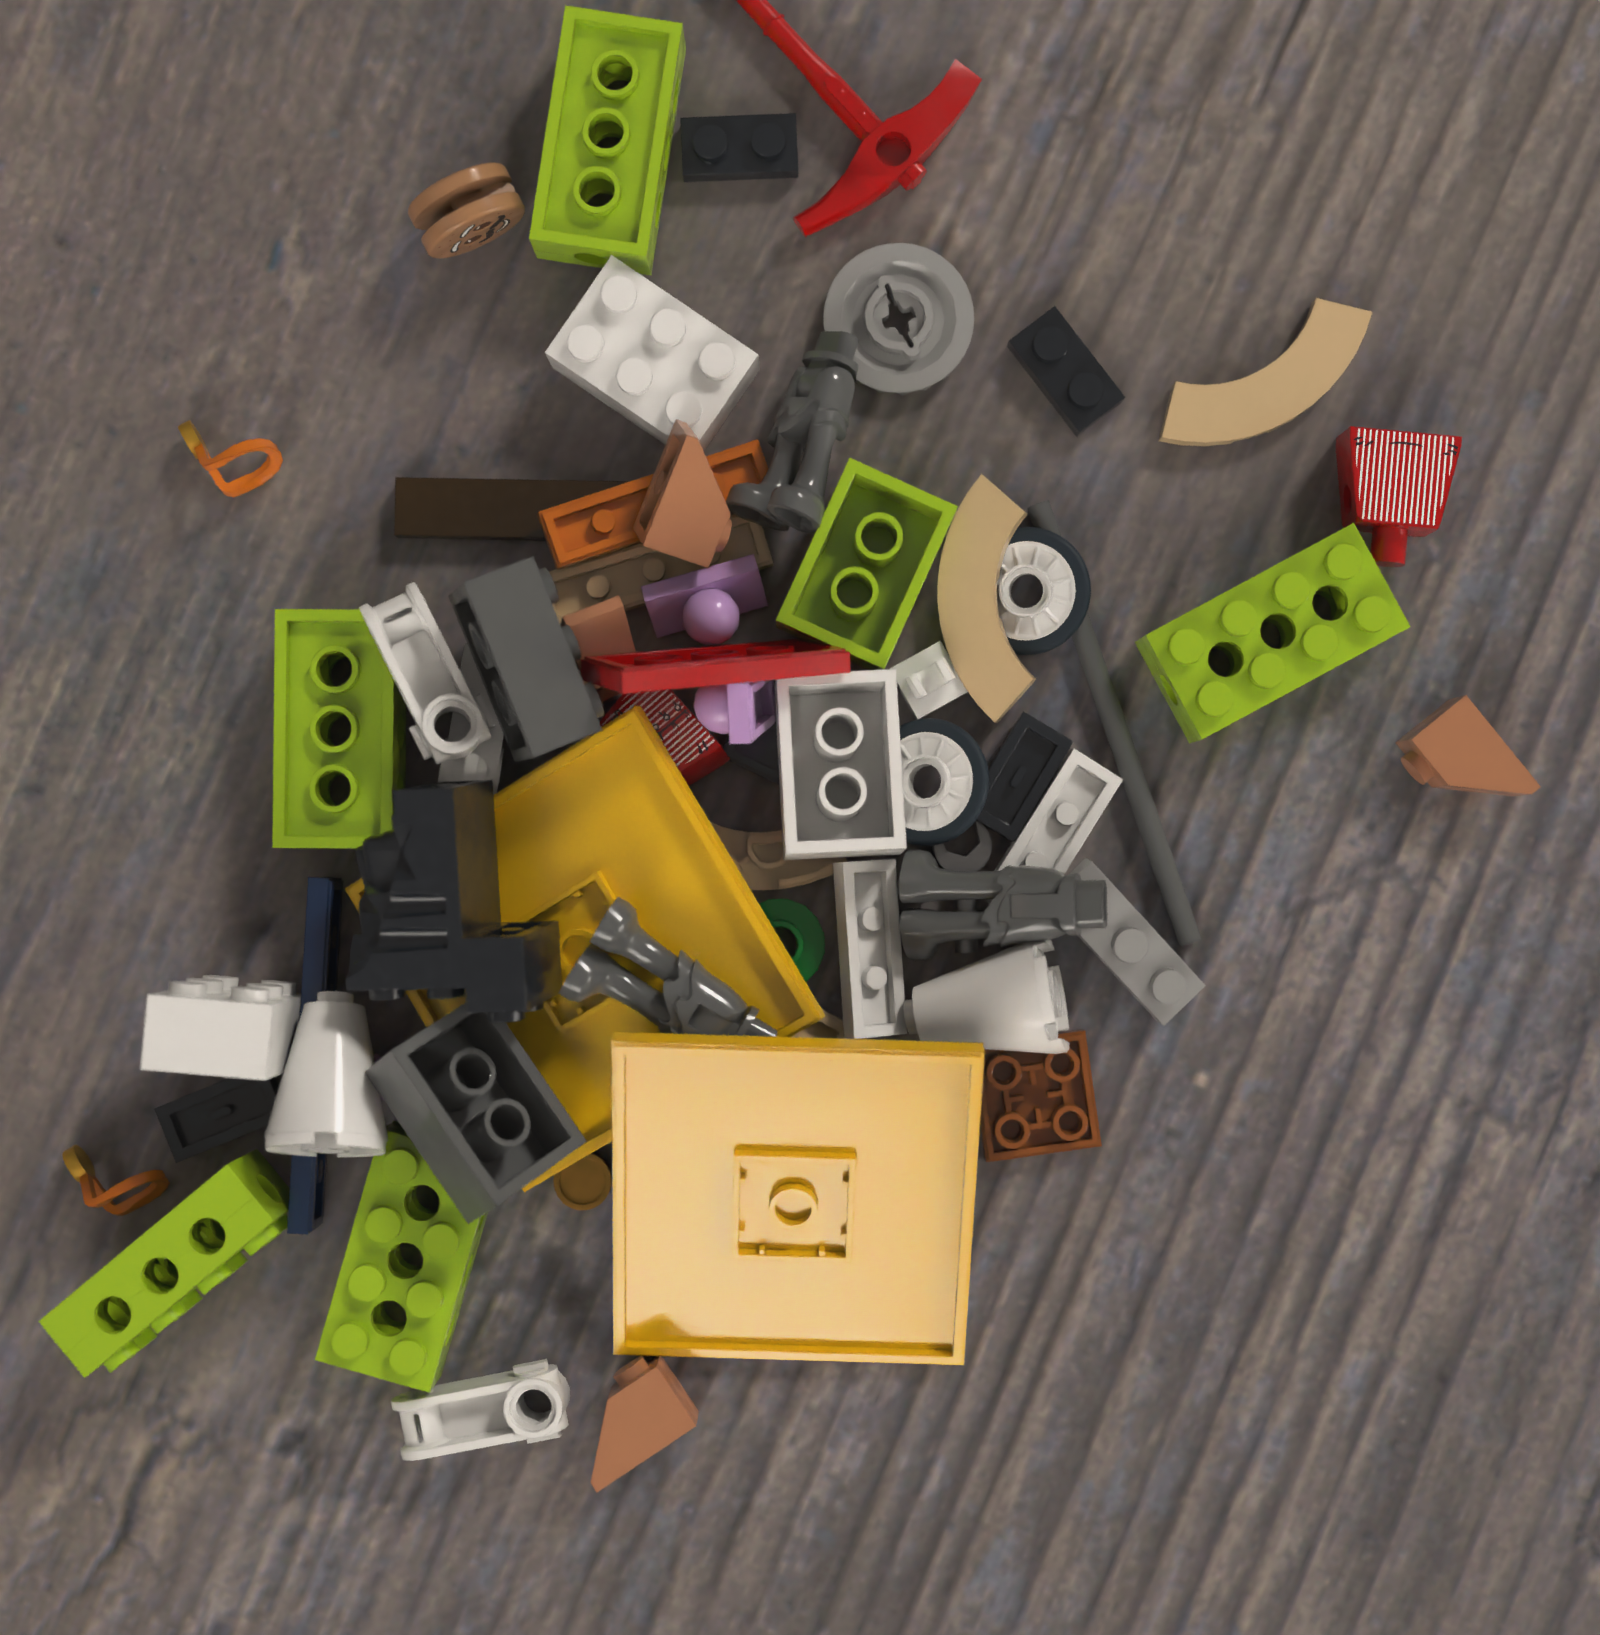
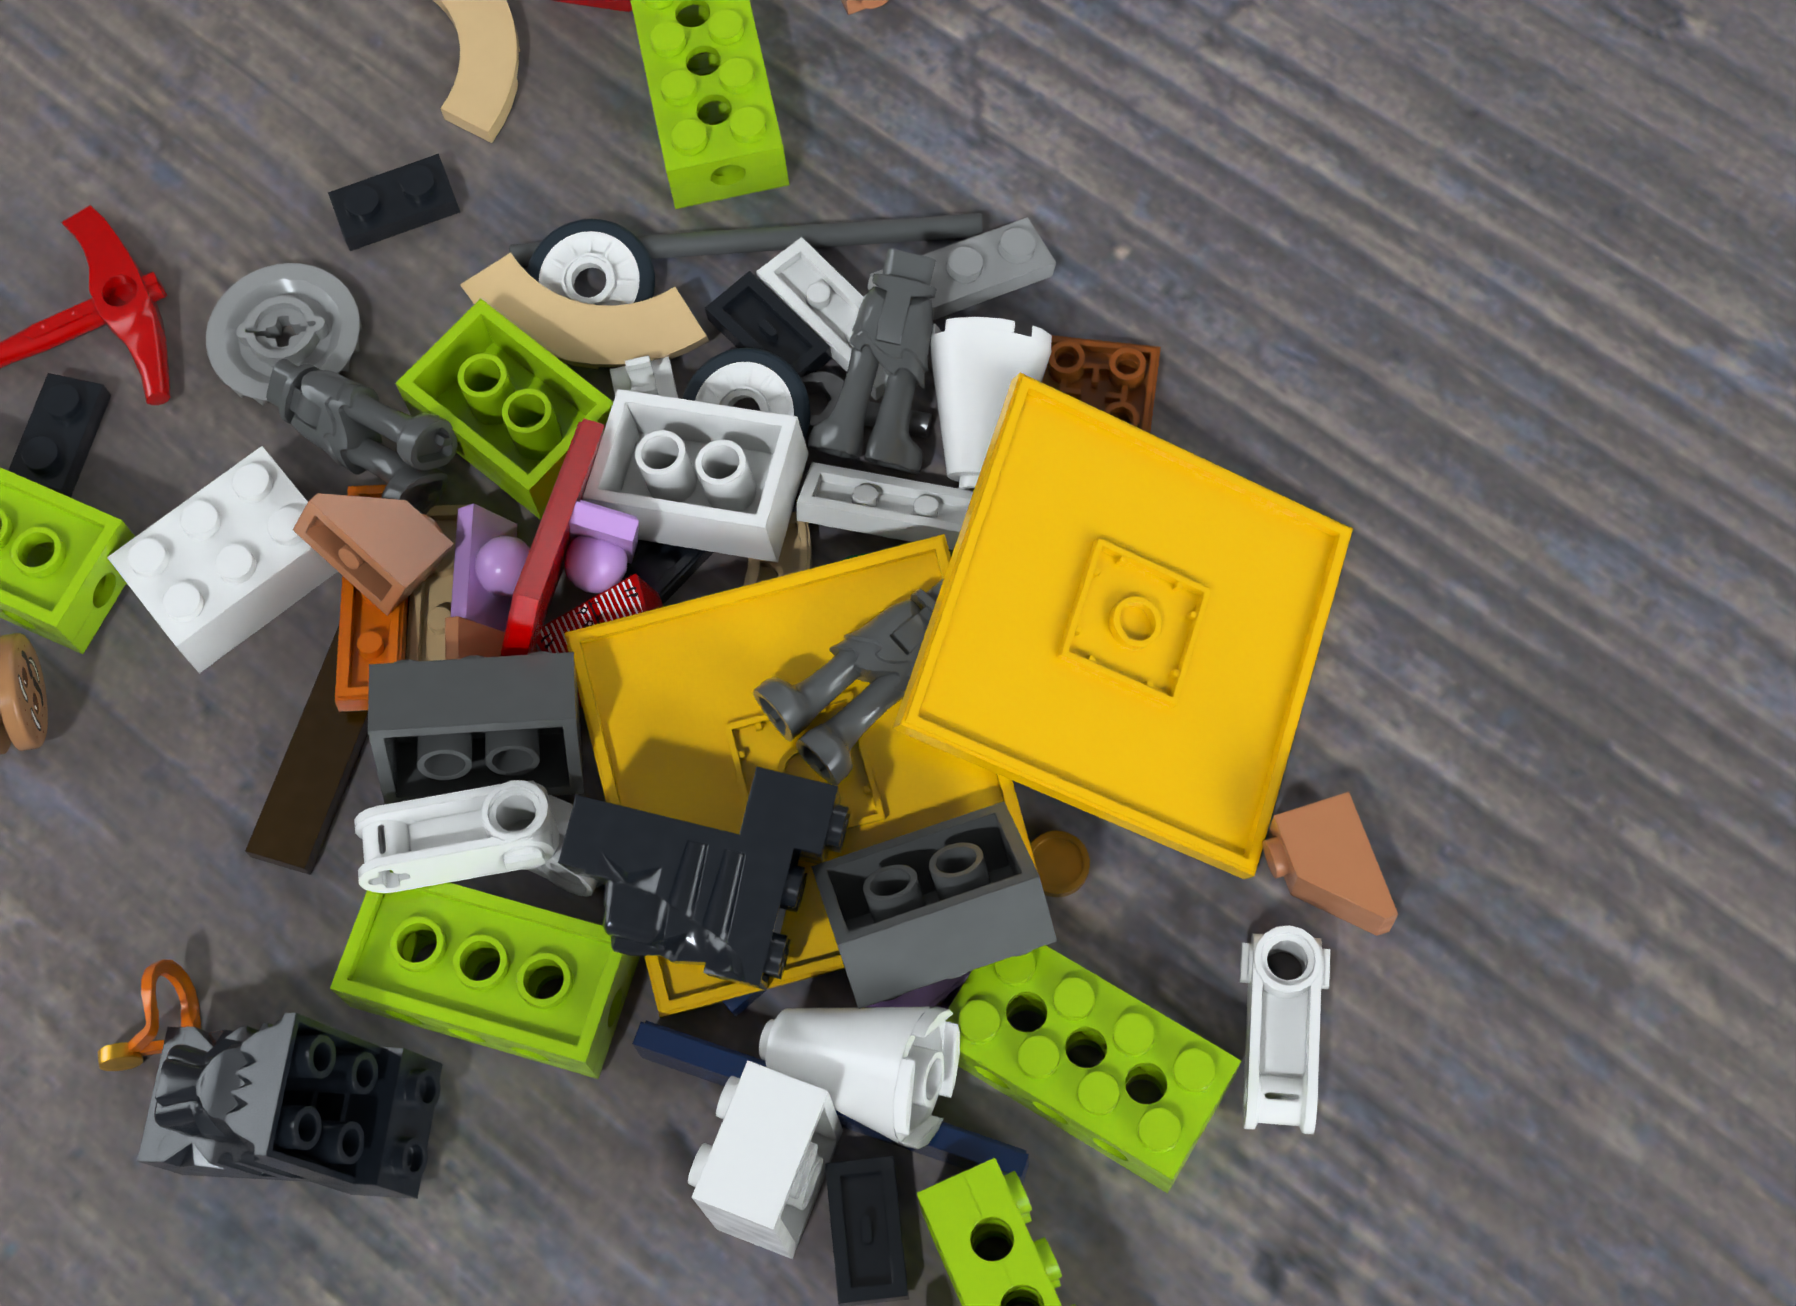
camera: 65 degrees left, 20 degrees down
(172, 608) = (292, 1108): none -> black brick

